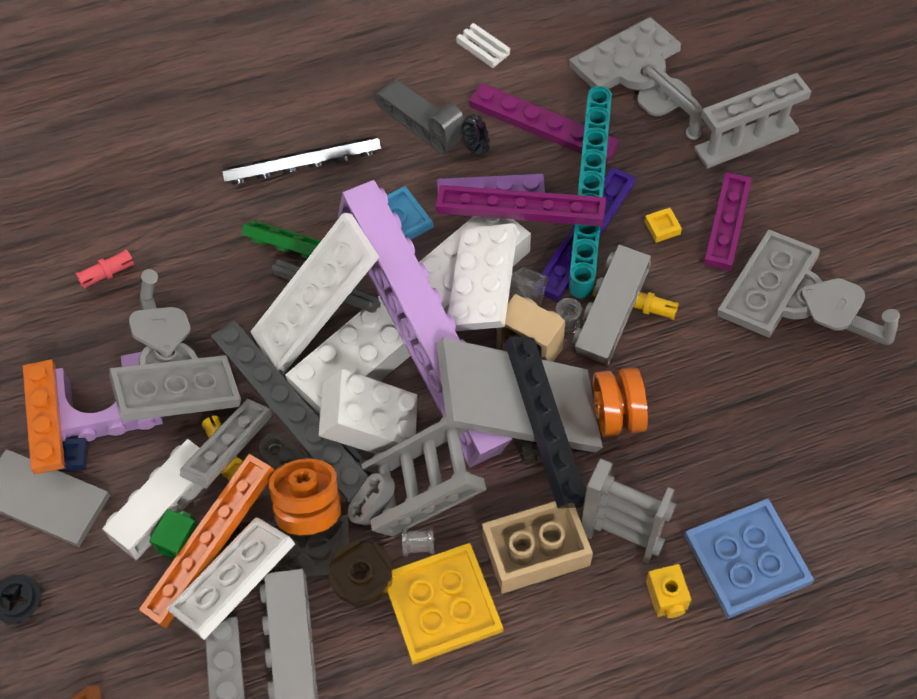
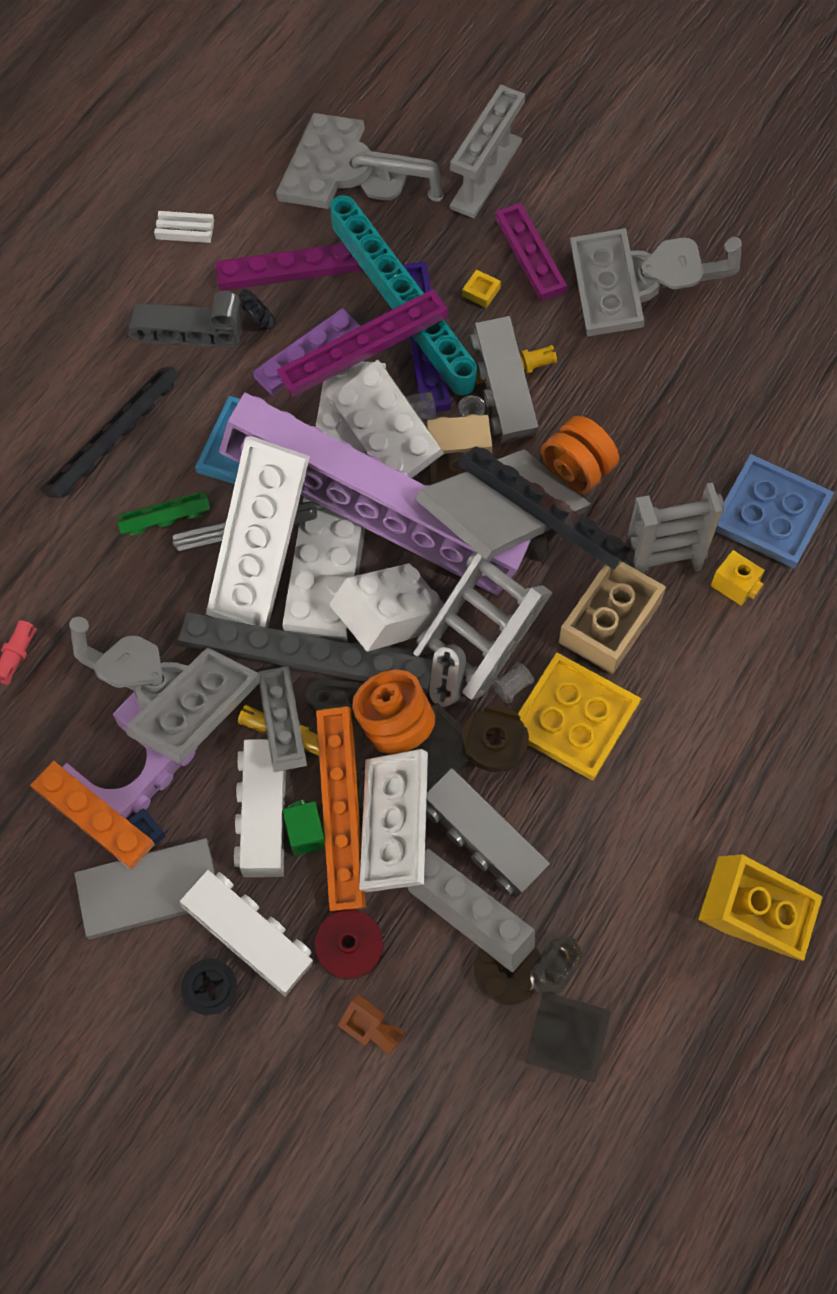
camera: 40 degrees left, 5 degrees up
(69, 580) = (246, 932): none -> white brick
(142, 656) = (350, 962): none -> dark red plate

